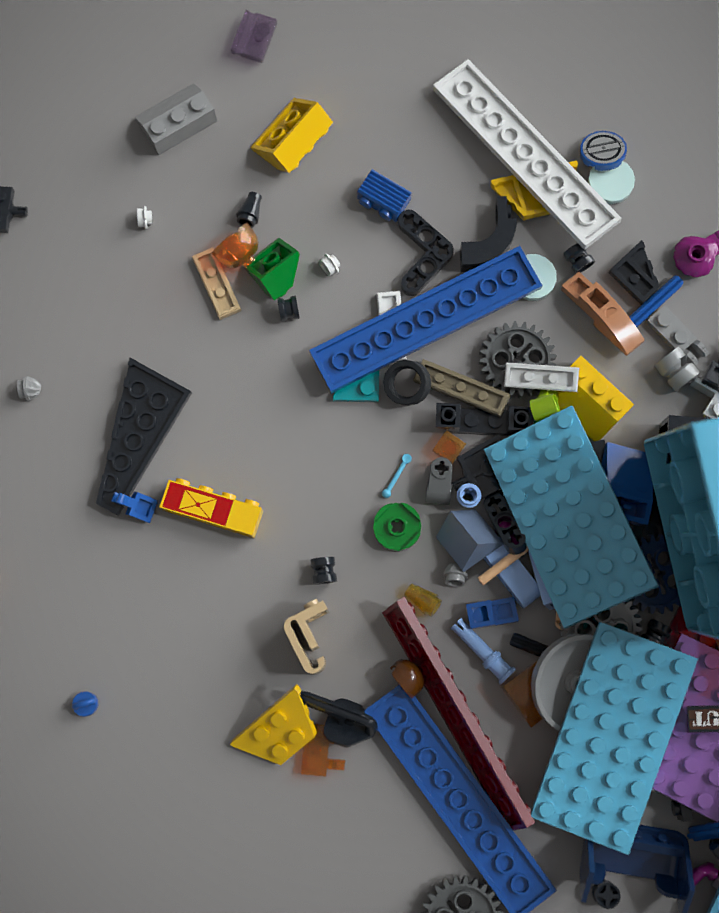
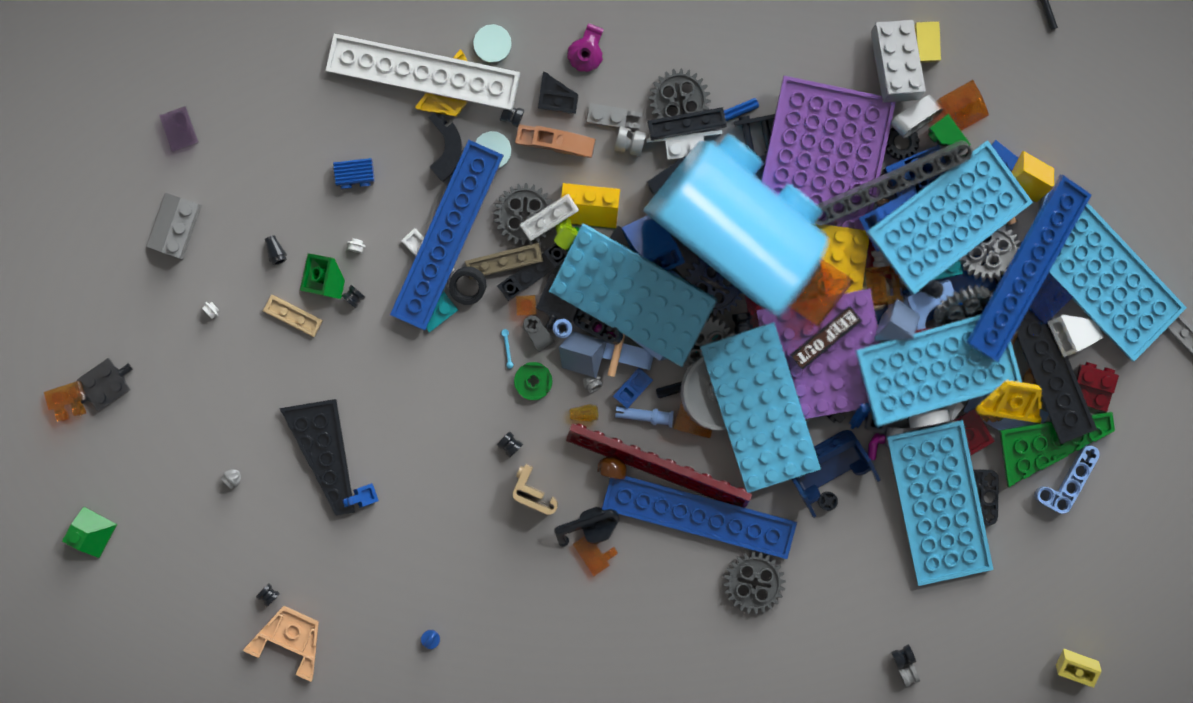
camera: 45 degrees left, 10 degrees up
(212, 508) = (410, 461): yellow brick -> none
(238, 248) = (290, 284): clear orange cylinder -> none
(279, 730) = (560, 561): yellow wing -> none
(292, 134) = (260, 177): yellow slope -> none
(431, 255) = (416, 188): black beam -> none
(603, 150) = (471, 28): tile -> none
(656, 300) = (582, 105): blue axle -> none

